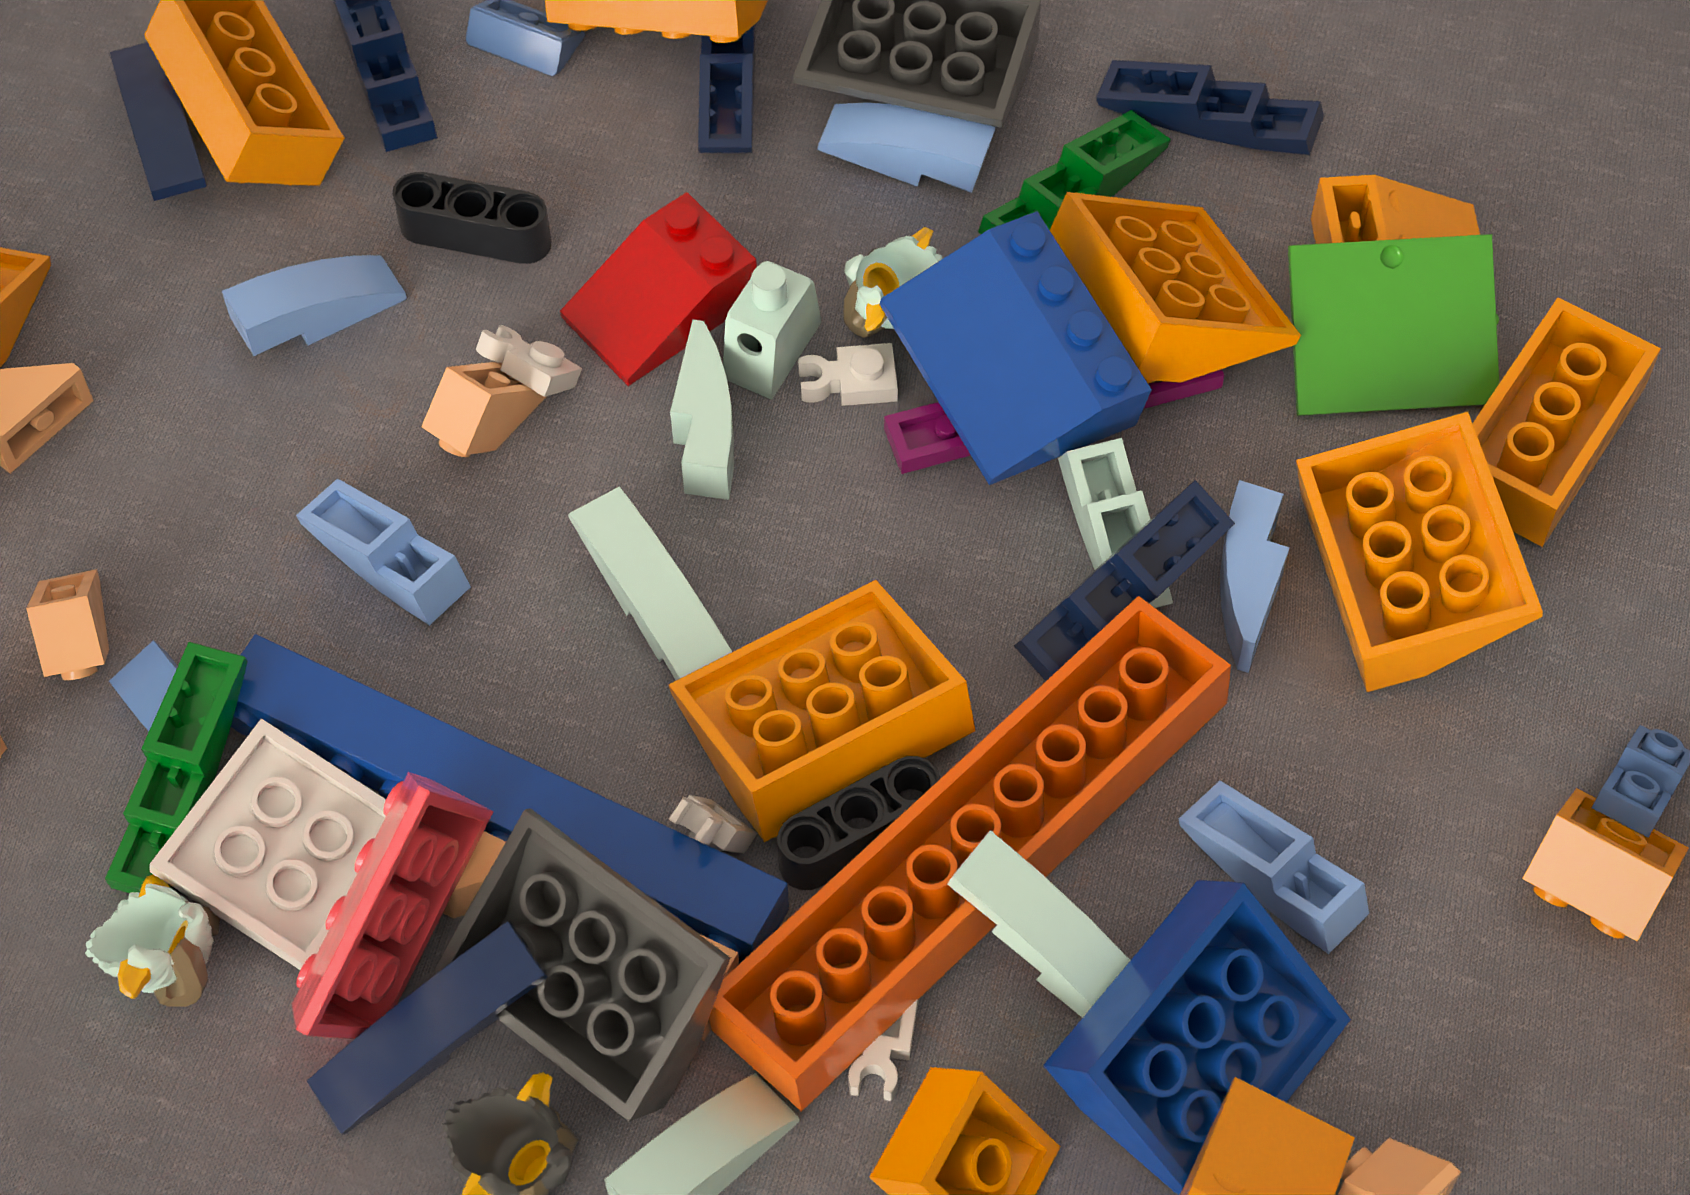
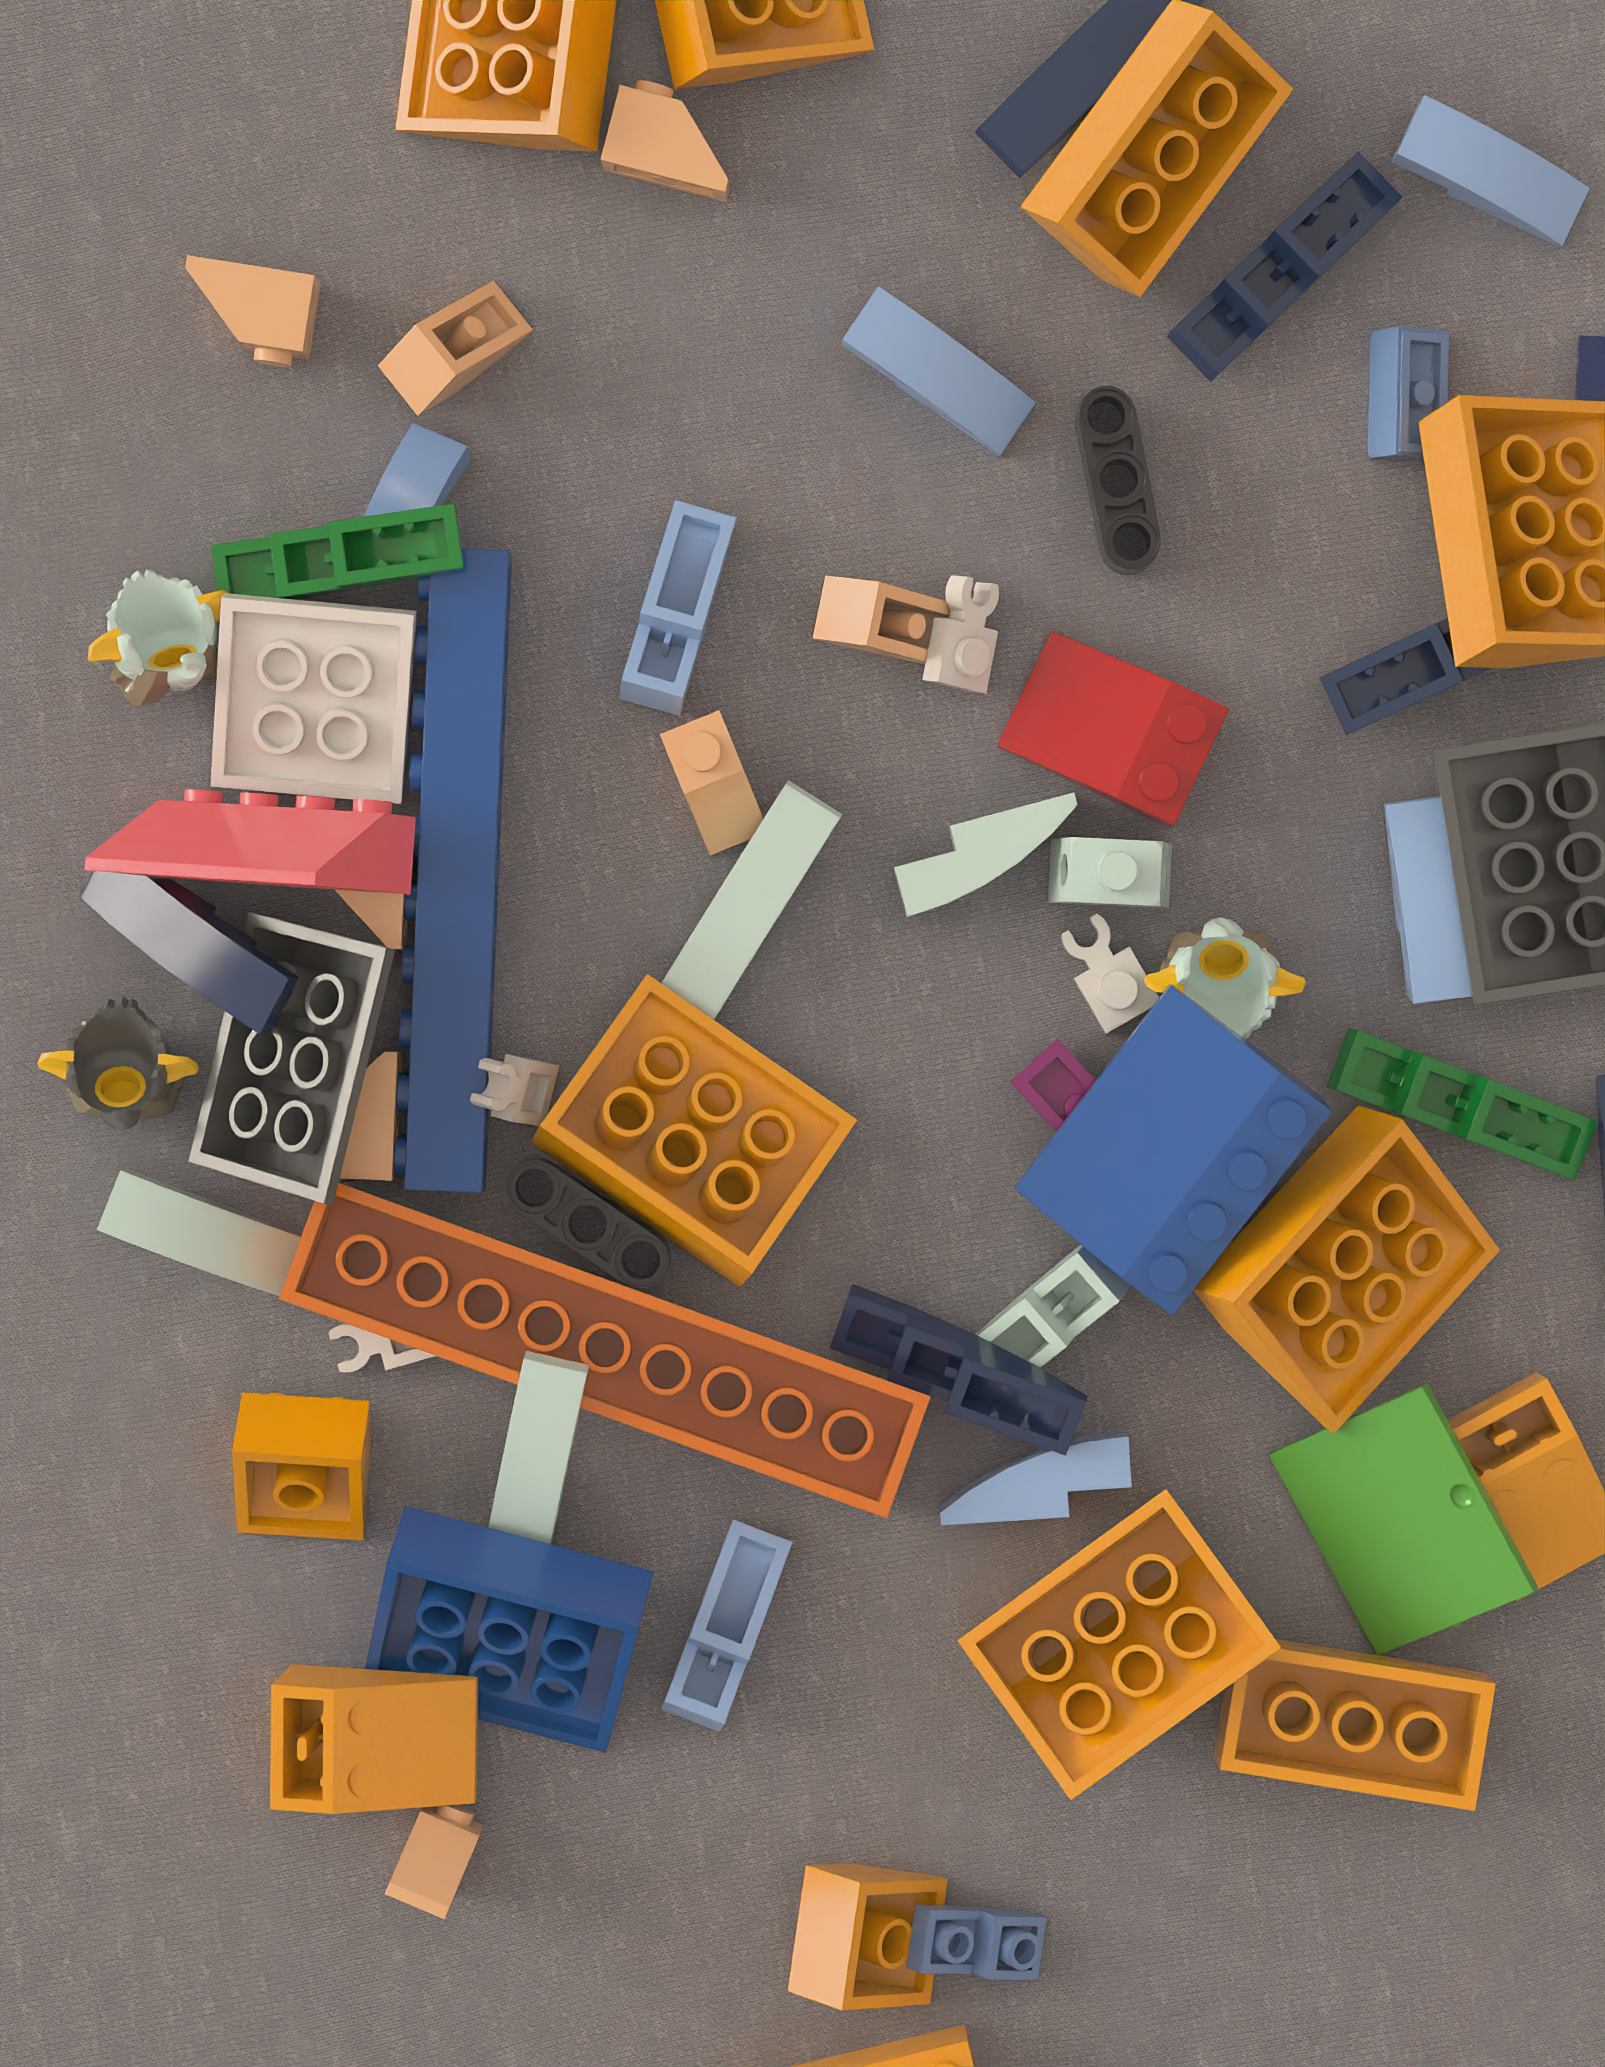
camera: 65 degrees right, 30 degrees up
(534, 576) = (713, 782): none -> light nougat slope

